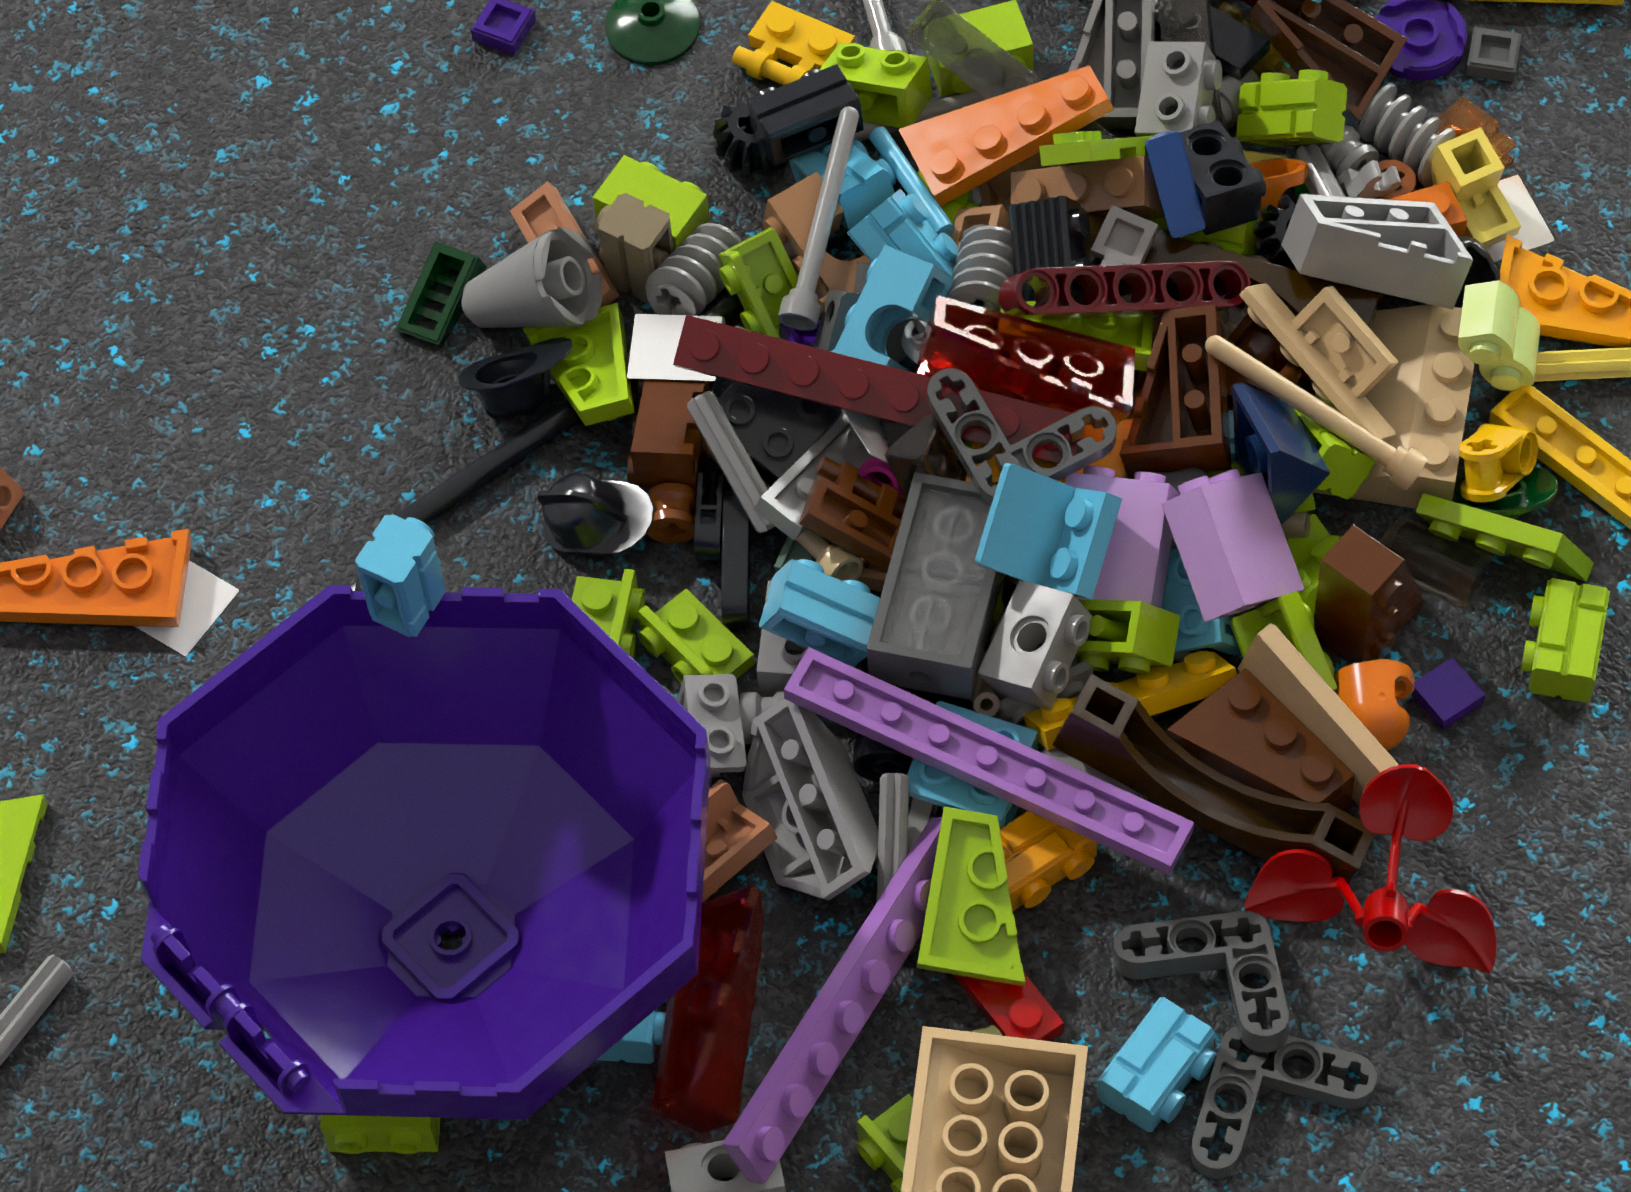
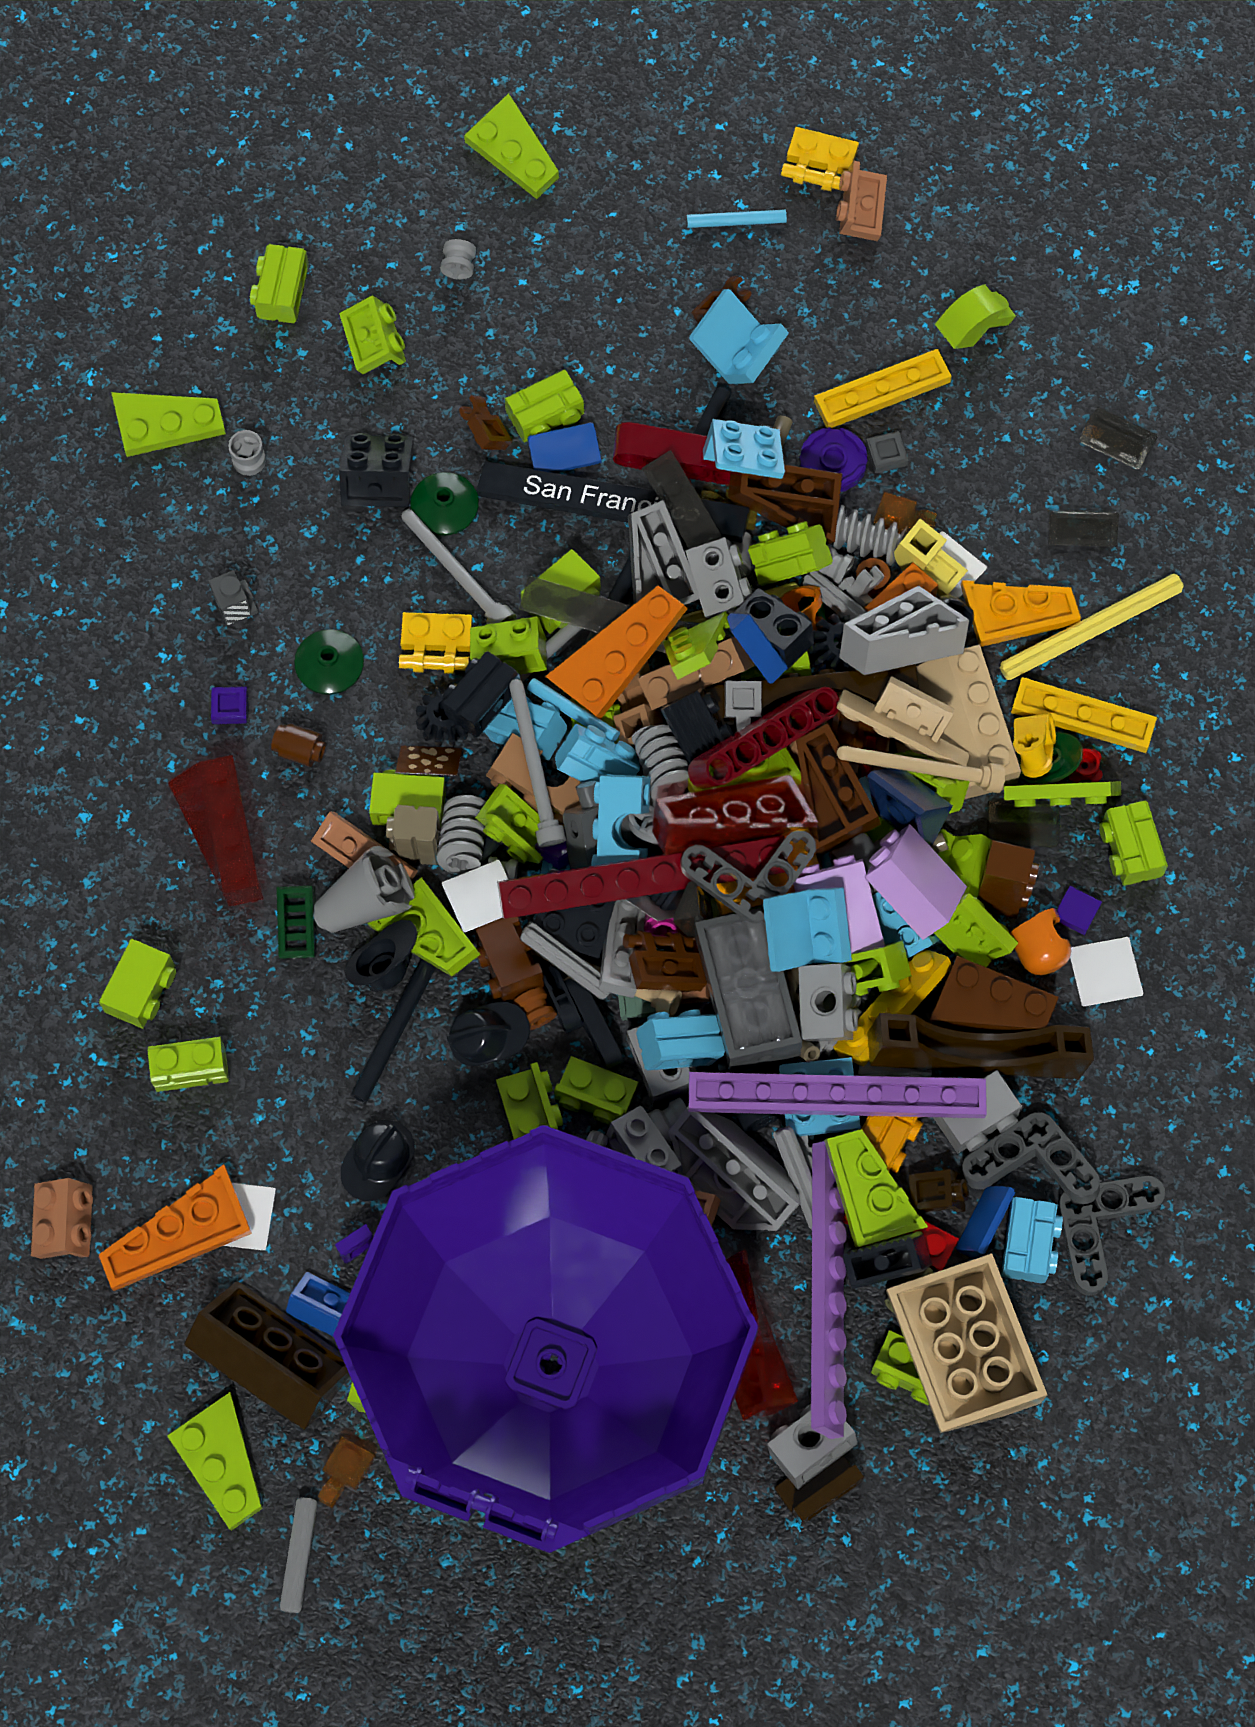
camera: 30 degrees left, 10 degrees up
(100, 756) = (268, 1354): none -> dark brown slope
(120, 953) = (347, 1468): none -> clear orange plate
(206, 281) = (138, 984): none -> lime brick
(213, 397) = (188, 1064): none -> lime brick
(401, 574) = (448, 1168): medium azure brick -> none
(416, 140) = (217, 816): none -> clear red wedge
(557, 96) = (298, 744): none -> reddish brown brick
(704, 175) = (428, 760): none -> reddish brown sticker
(948, 997) = (887, 1259): none -> black brick
(1068, 952) = (938, 1191): none -> dark brown bracket
(1114, 1019) = (985, 1221): none -> blue slope
(1195, 886) = (1001, 1115): none -> light grey brick
(1316, 705) = (1074, 994): tan tile -> none
(1400, 802) = (1161, 1070): red plant -> none
(1466, 774) = (1105, 971): none -> white sticker
(1499, 335) = (1001, 659): yellowish green brick -> none
(1561, 512) = (1092, 759): none -> red plate

